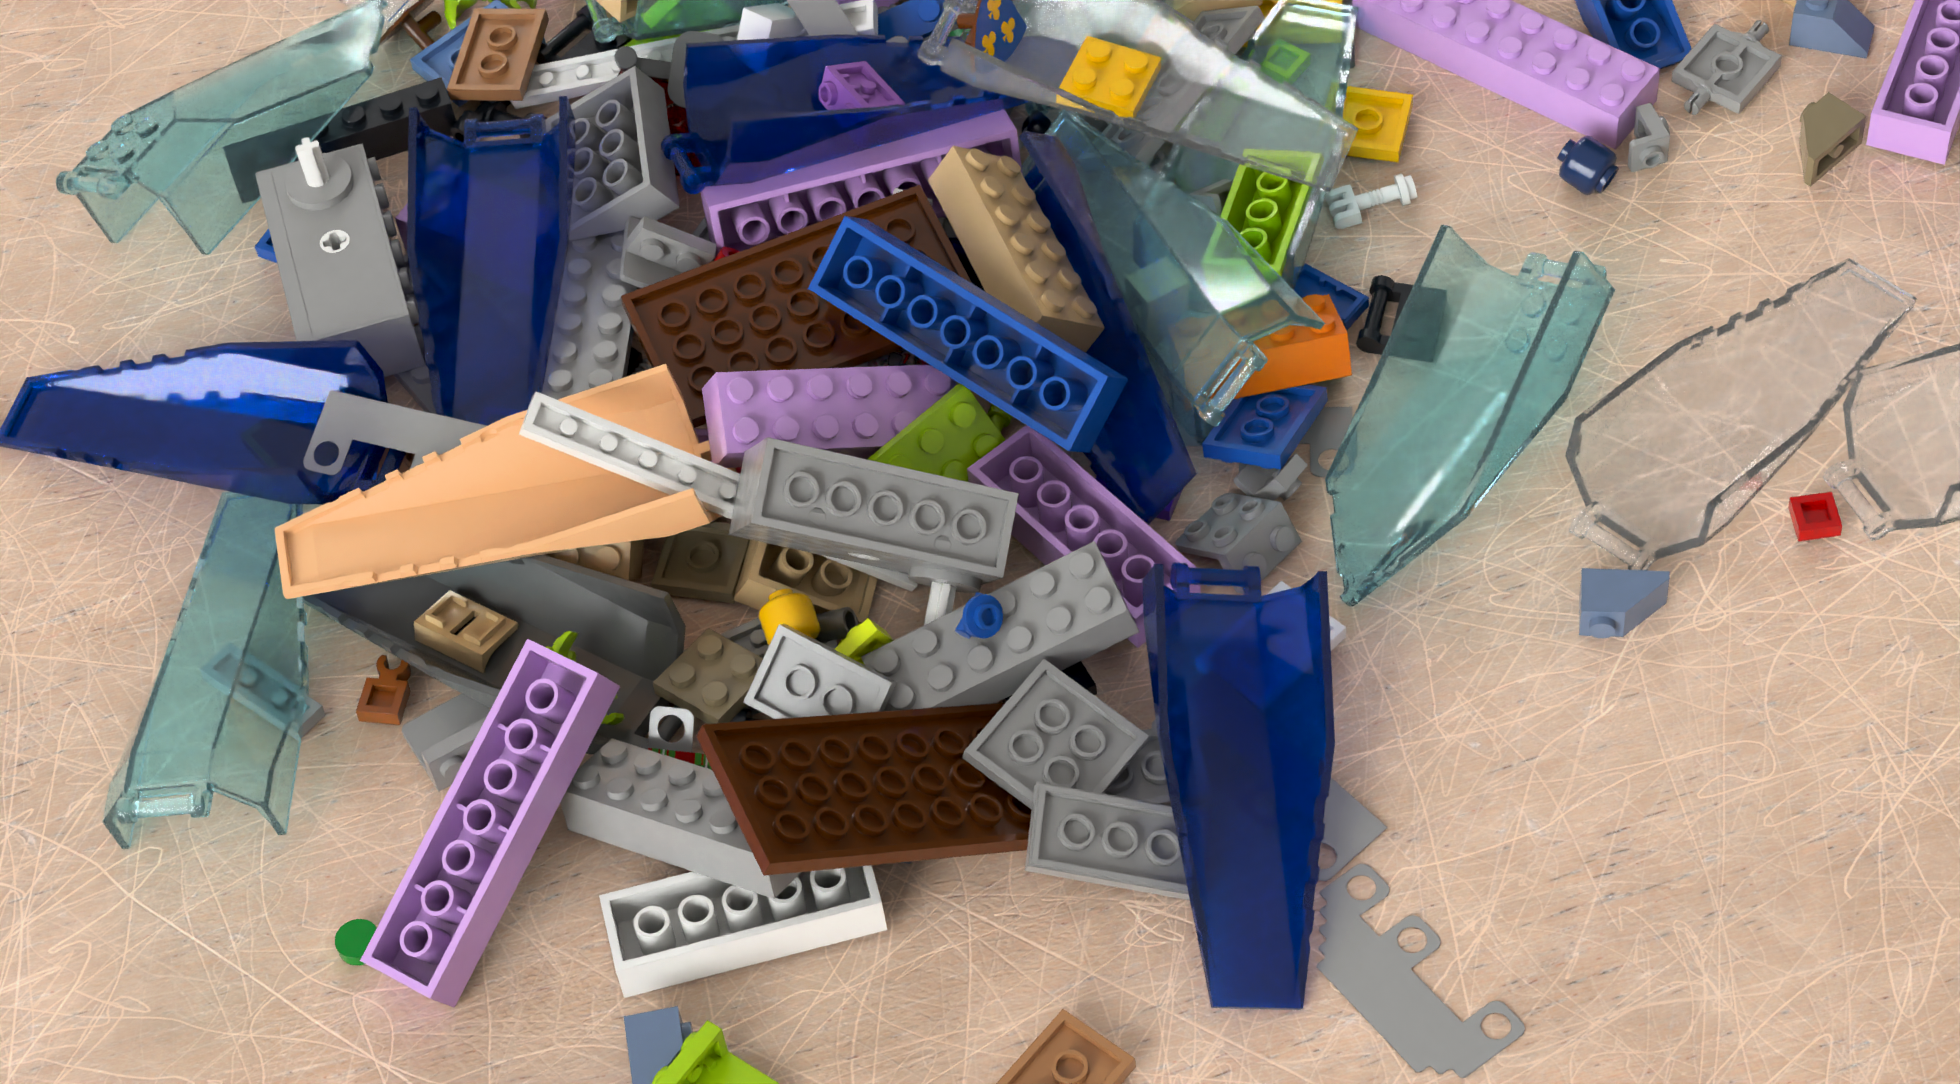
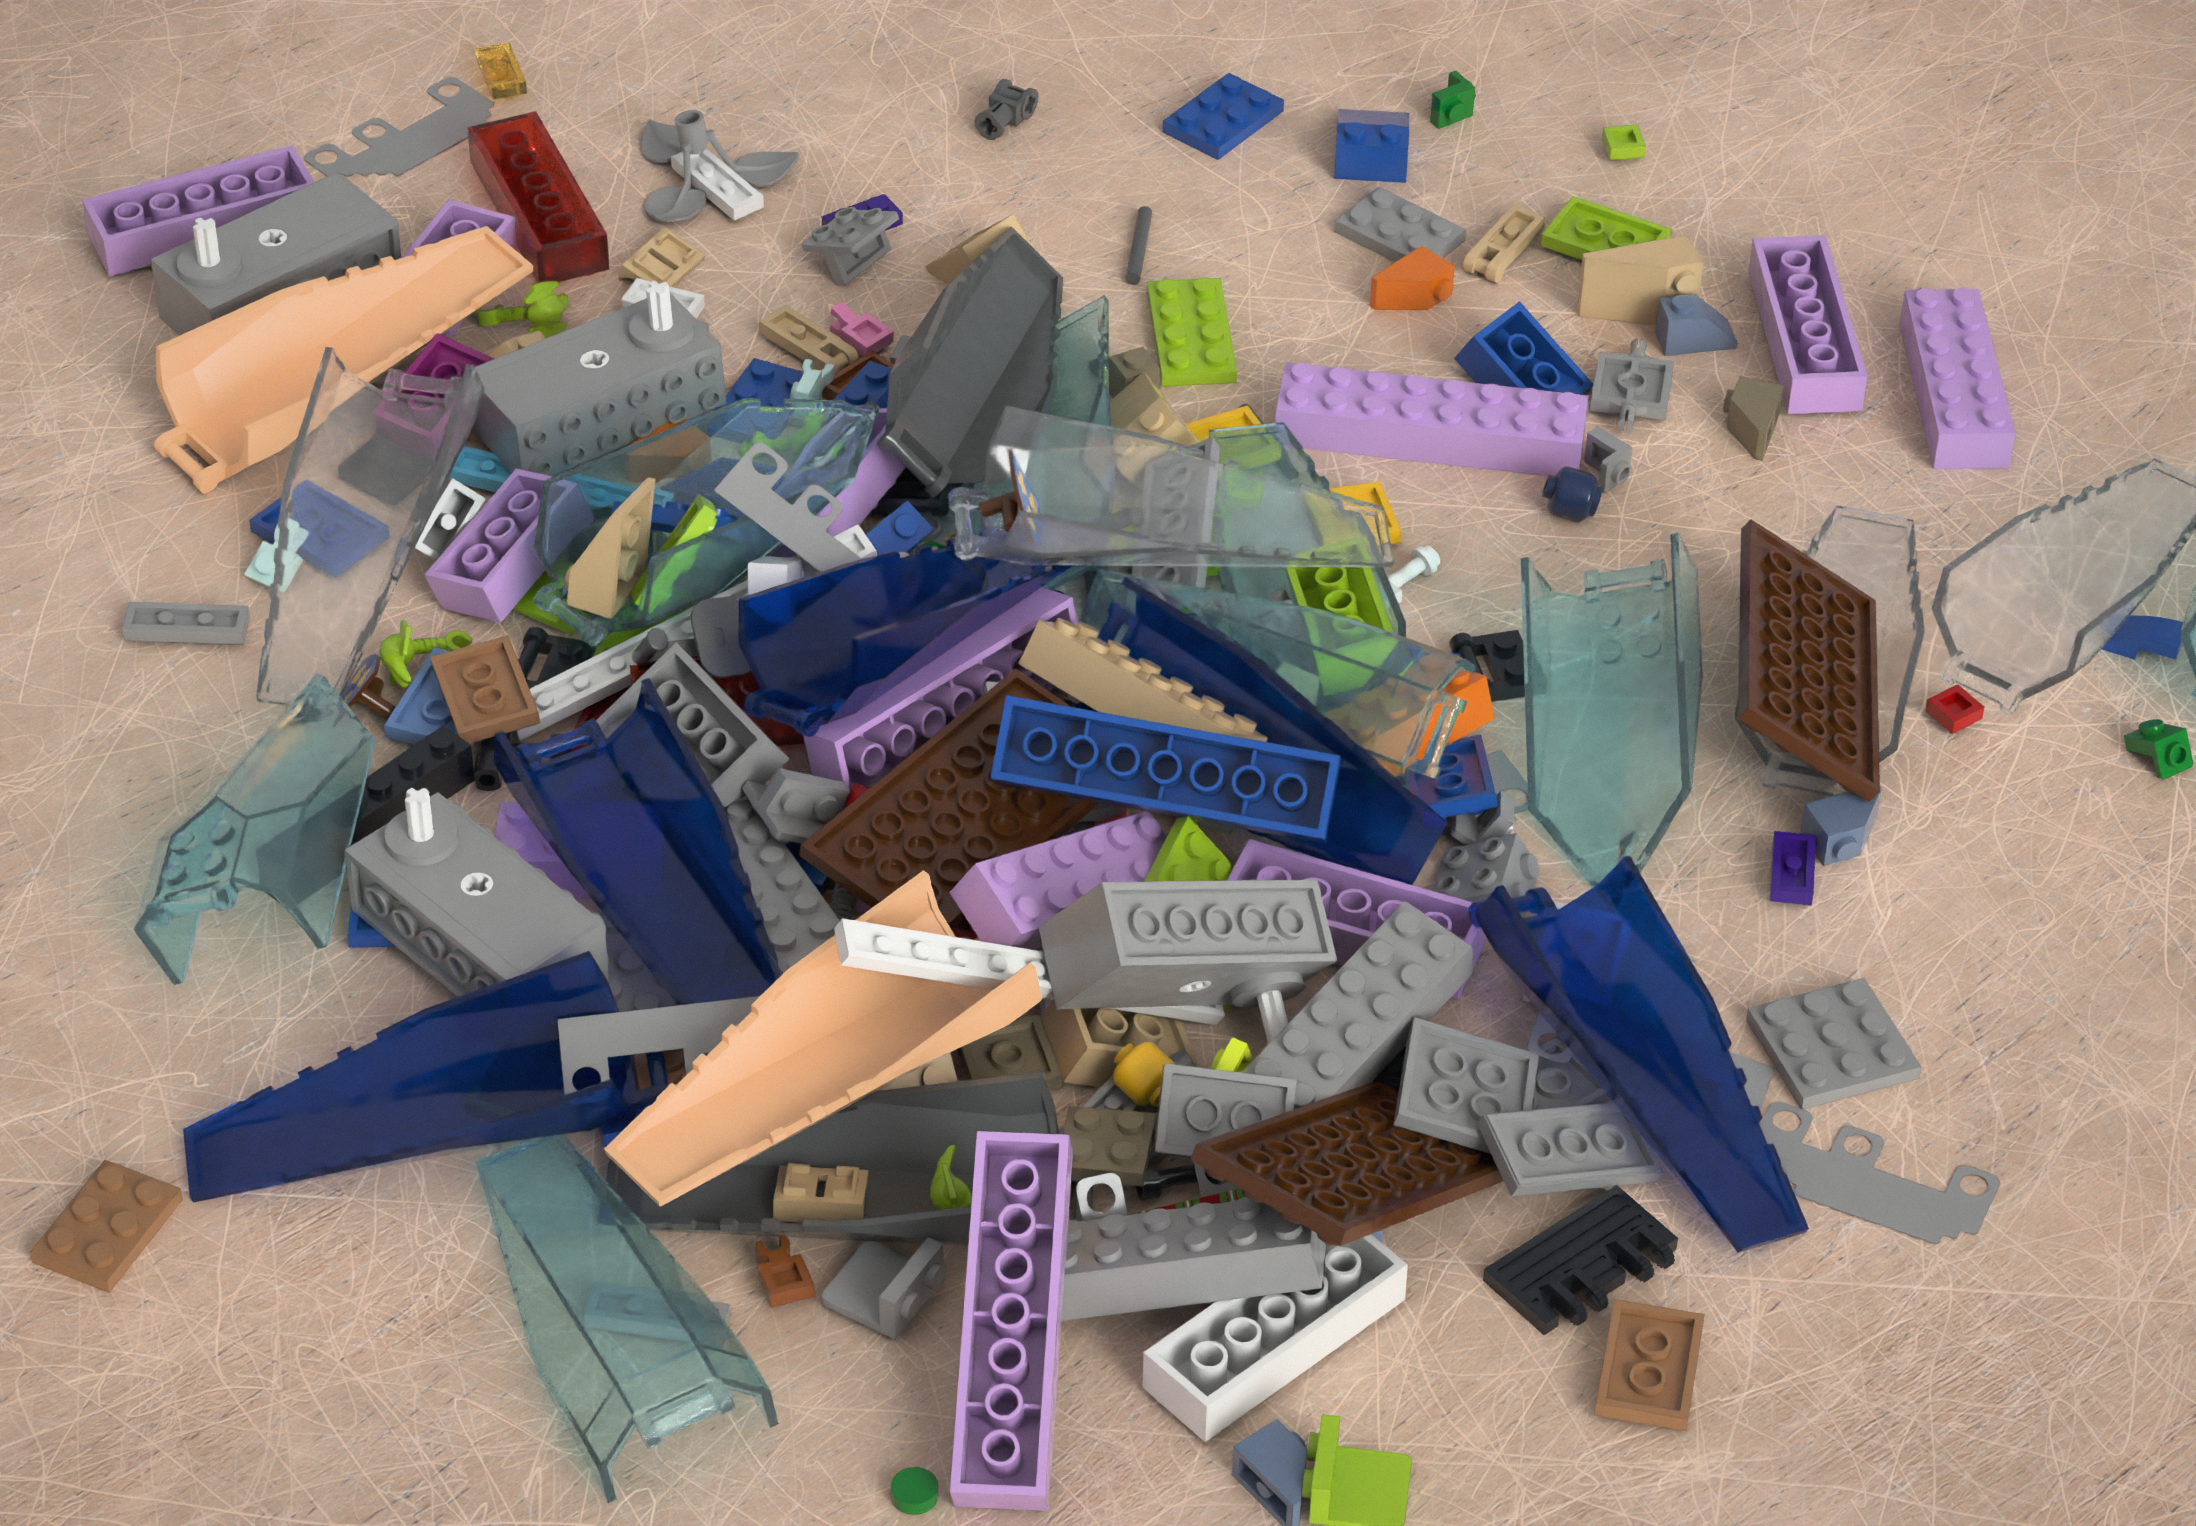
camera: 35 degrees left, 10 degrees down
(855, 87) = (900, 600): medium lavender bracket -> none
(980, 617) = (1343, 996): blue plate -> none
(1070, 951) = (1582, 1259): none -> black hinge
(1111, 76) = (1147, 513): yellow plate -> none
(1457, 826) = (1833, 1043): none -> light grey plate
(1538, 628) = (1792, 868): none -> dark purple plate
(1668, 421) = (1808, 661): none -> reddish brown plate

